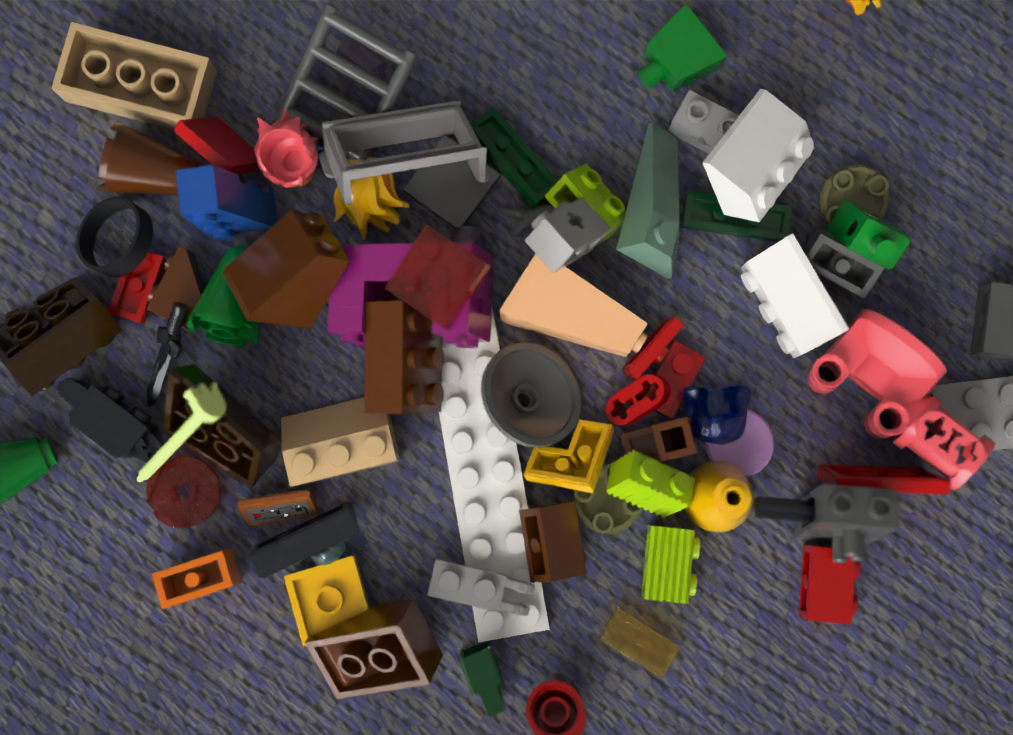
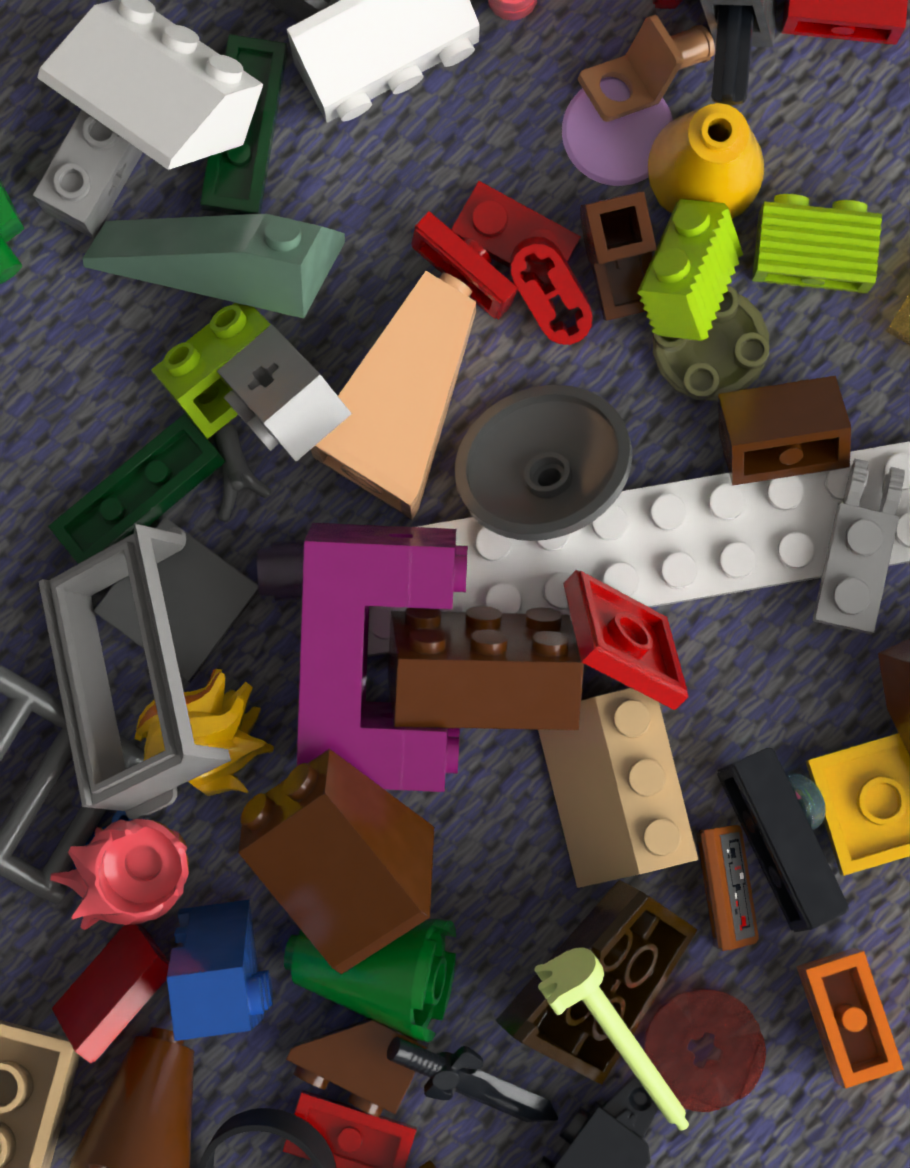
camera: 95 degrees left, 0 degrees up
(421, 442) = (625, 639): none -> red tile
(437, 277) = (362, 598): clear red plate -> none
(579, 464) = (662, 390): yellow brick -> none
(717, 413) = (572, 160): clear blue hair -> none
(778, 459) = (647, 67): none -> medium nougat bracket

